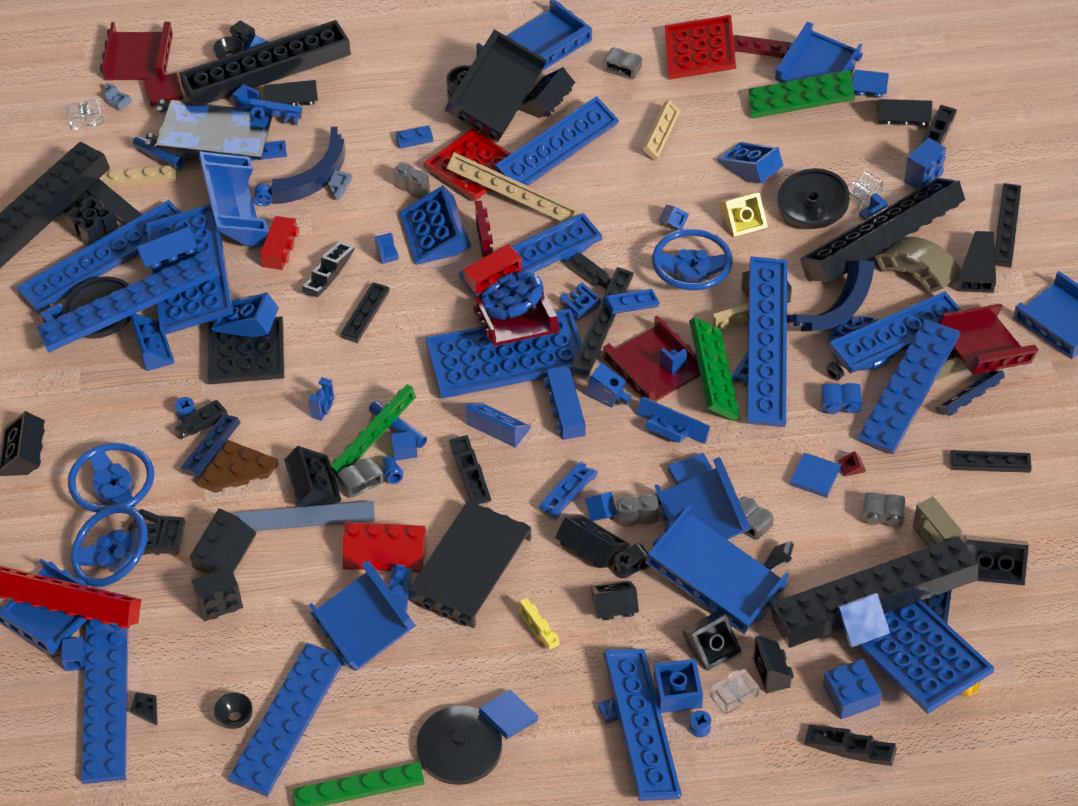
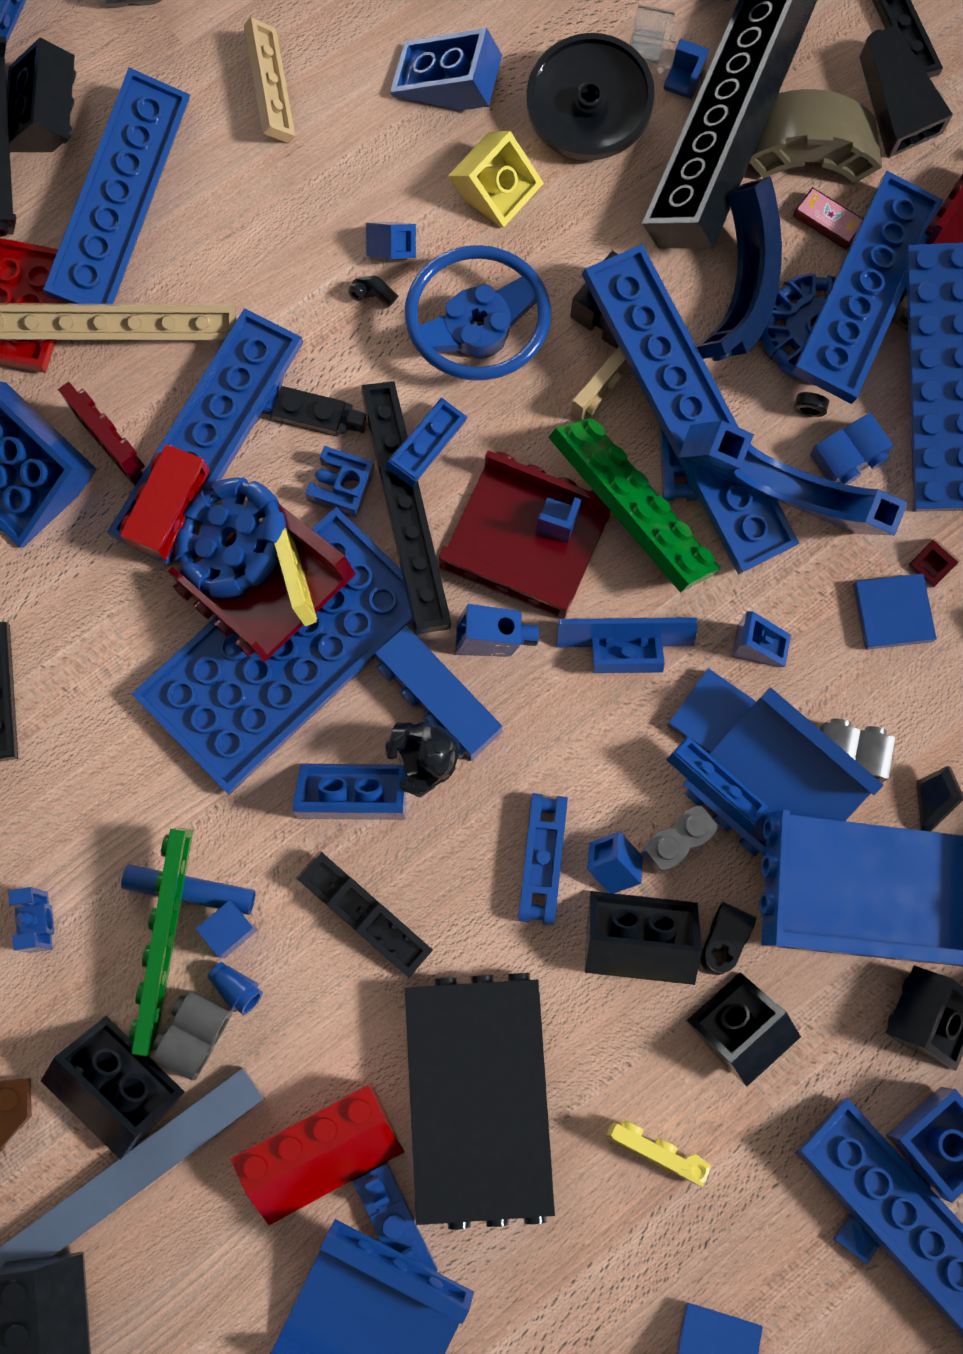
camera: 35 degrees left, 25 degrees up
(529, 318) = (295, 578): none -> light yellow tile
(543, 416) = (427, 753): none -> black helmet
(650, 231) = (372, 286): none -> black arm
(670, 491) = (718, 784): none -> blue tile
(736, 452) = (761, 641): none -> blue slope
(762, 352) = (729, 453): none -> blue arch
(901, 297) = (828, 218): none -> tile

